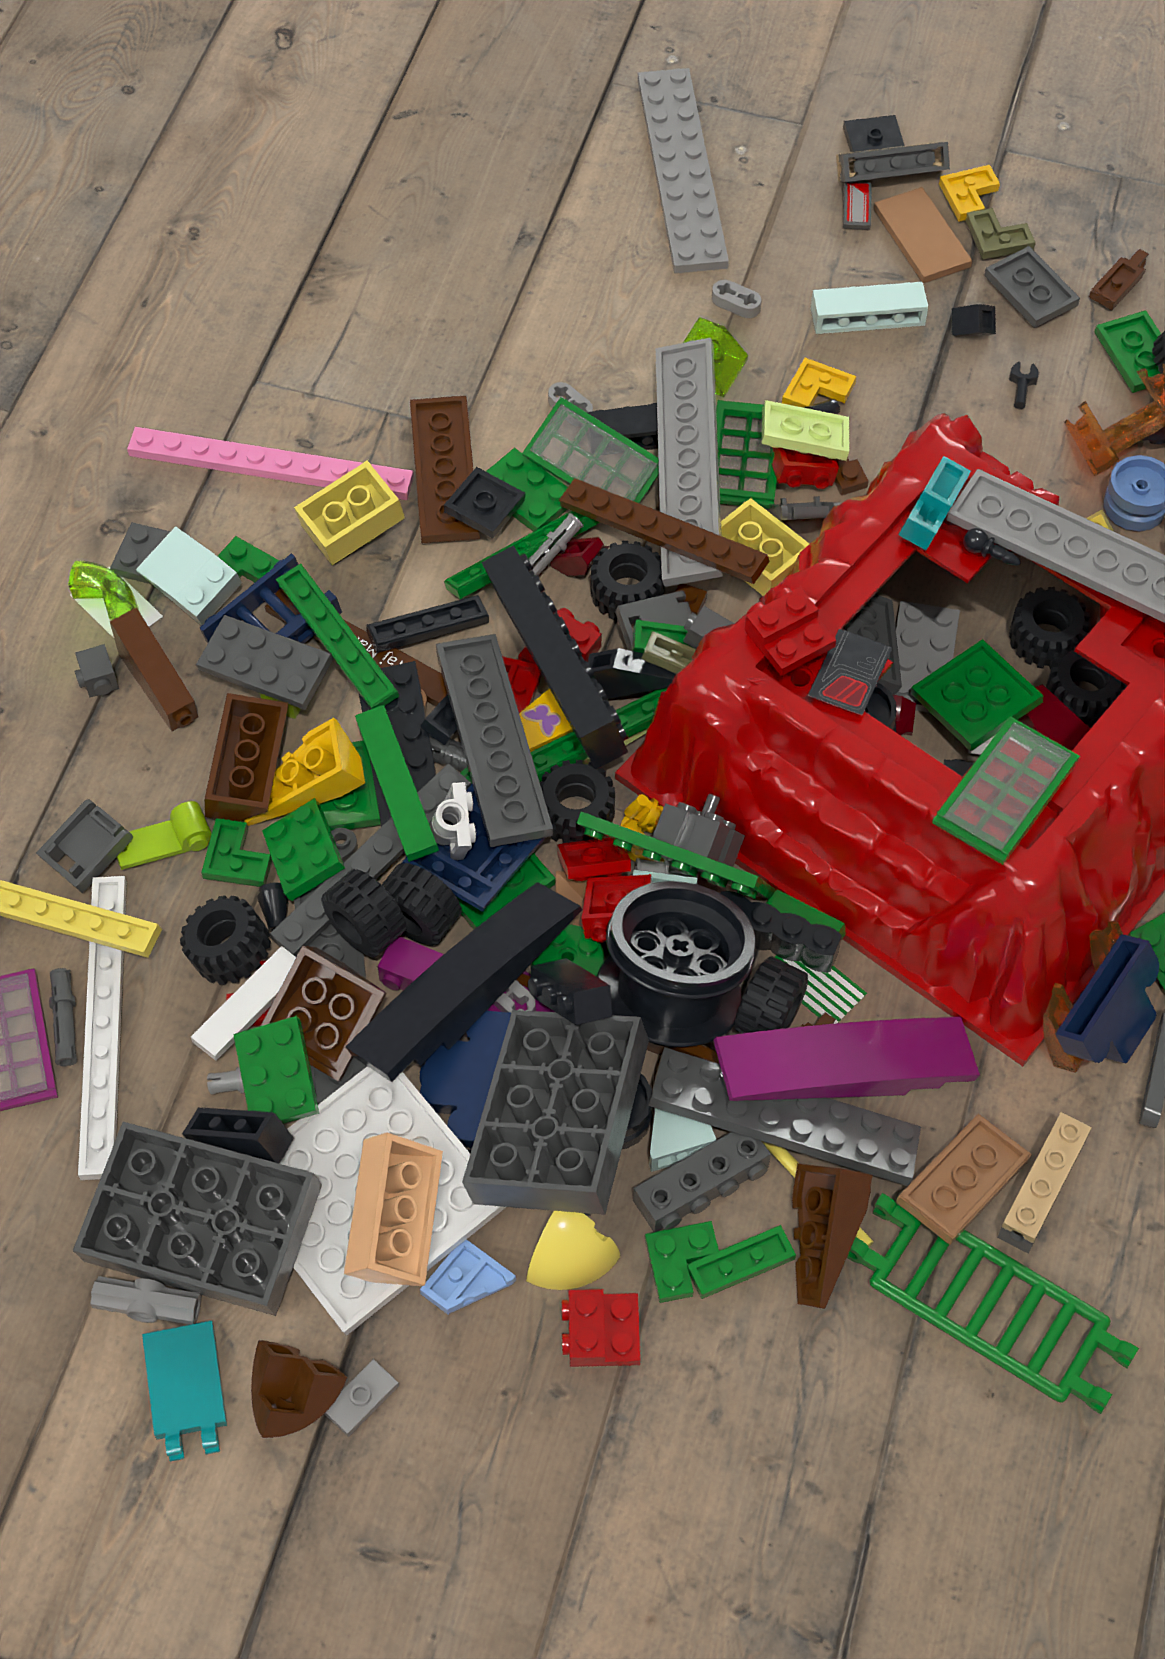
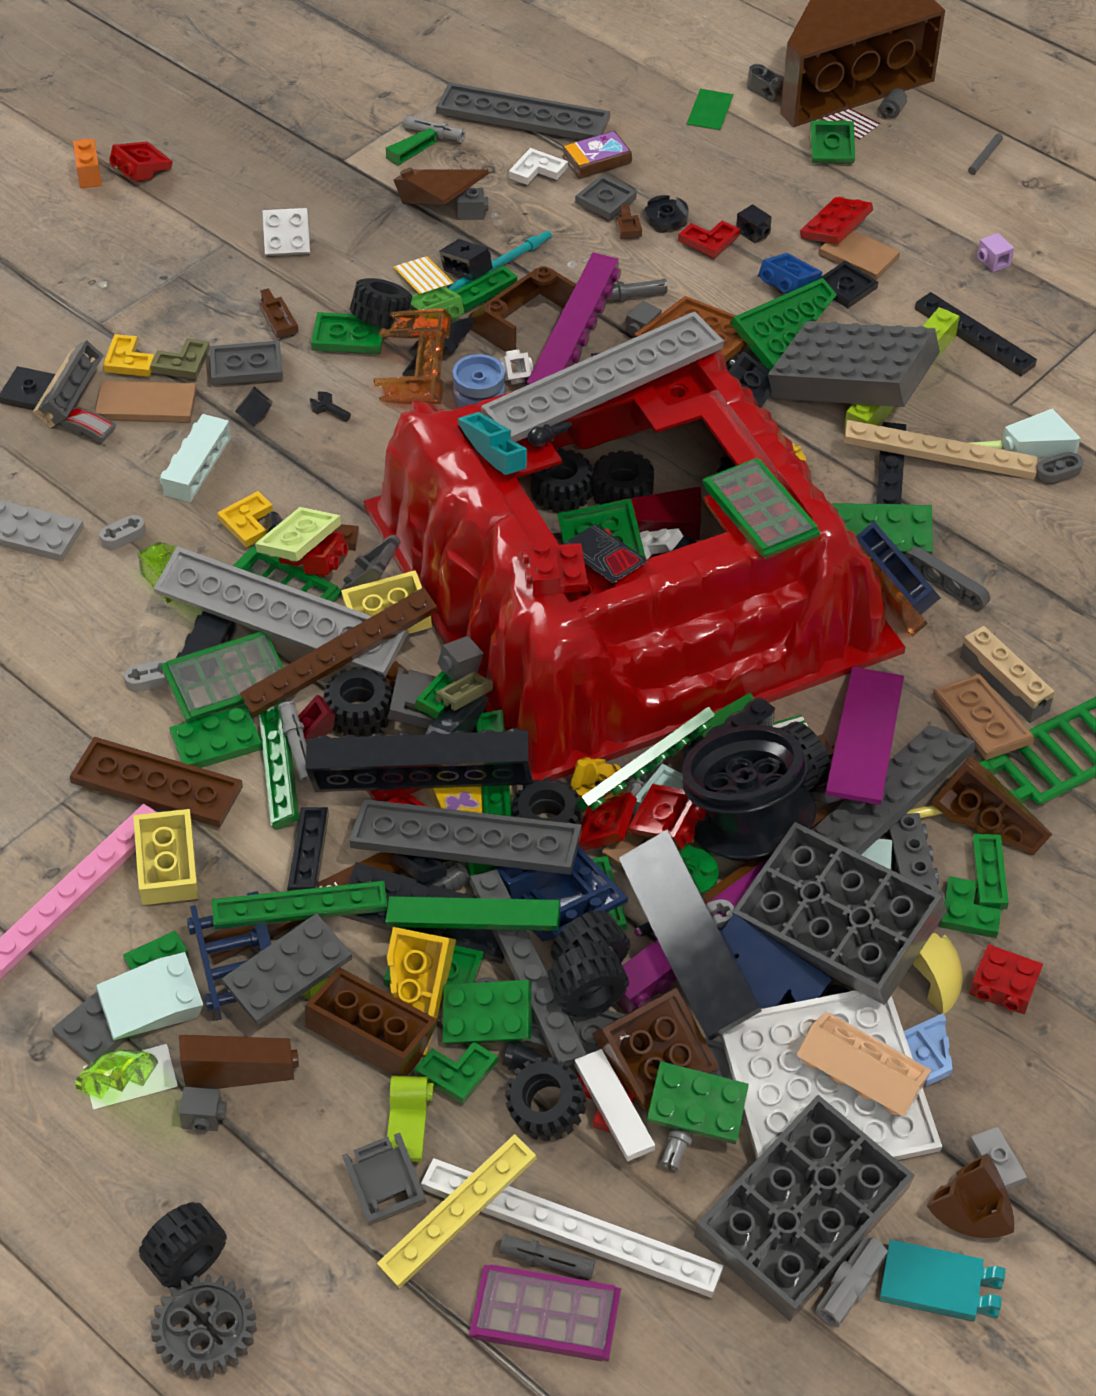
camera: 65 degrees left, 10 degrees down
(240, 1131) = (743, 1145): black brick -> none
(455, 809) = (540, 879): white plate -> none
(484, 502) = (220, 761): black plate -> none
(571, 991) = (742, 862): black brick -> none
(700, 831) = (636, 734): dark grey brick -> none

